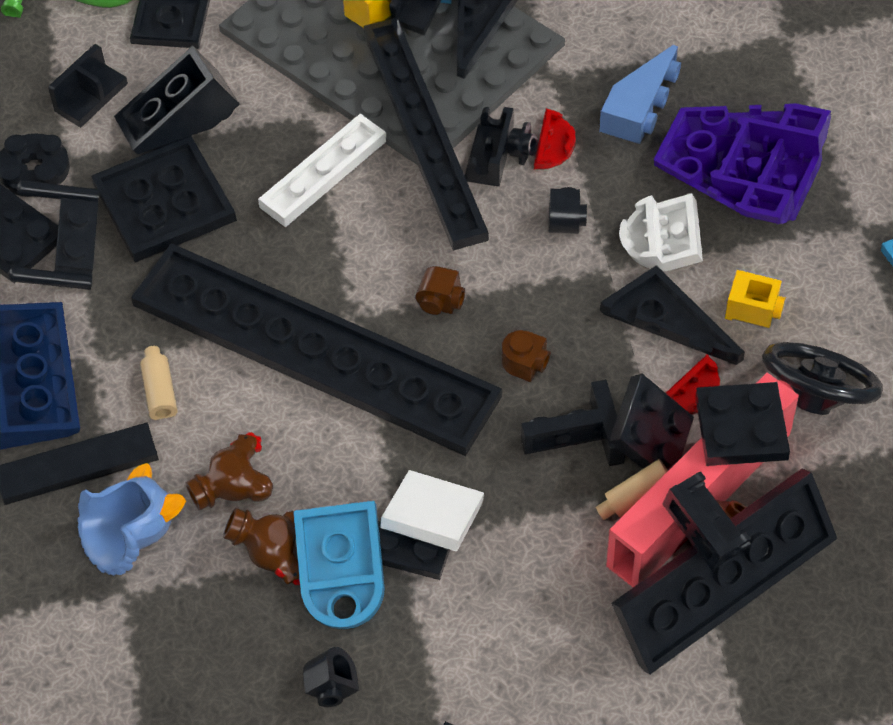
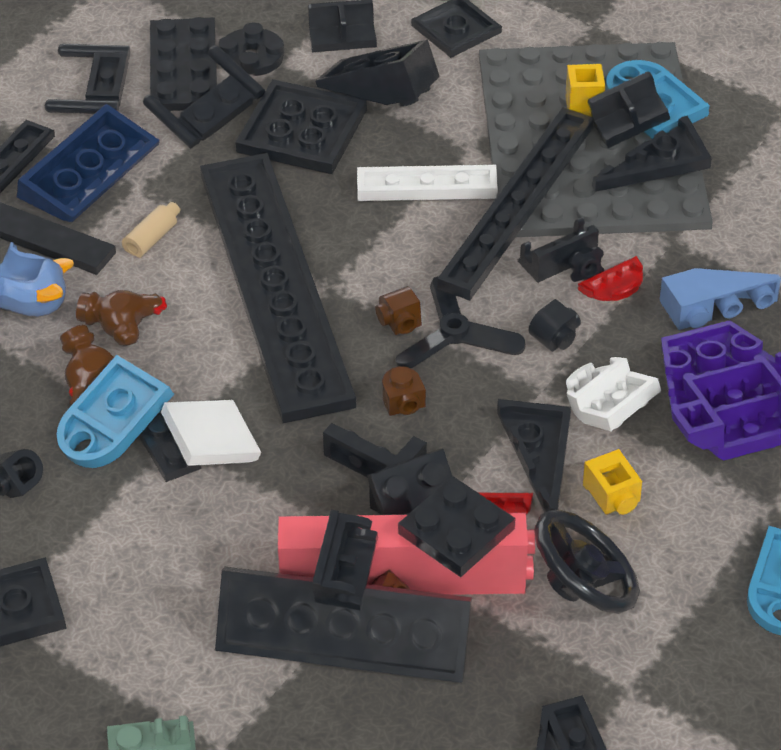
camera: 45 degrees right, 10 degrees down
(493, 285) = (465, 332): none -> black piece

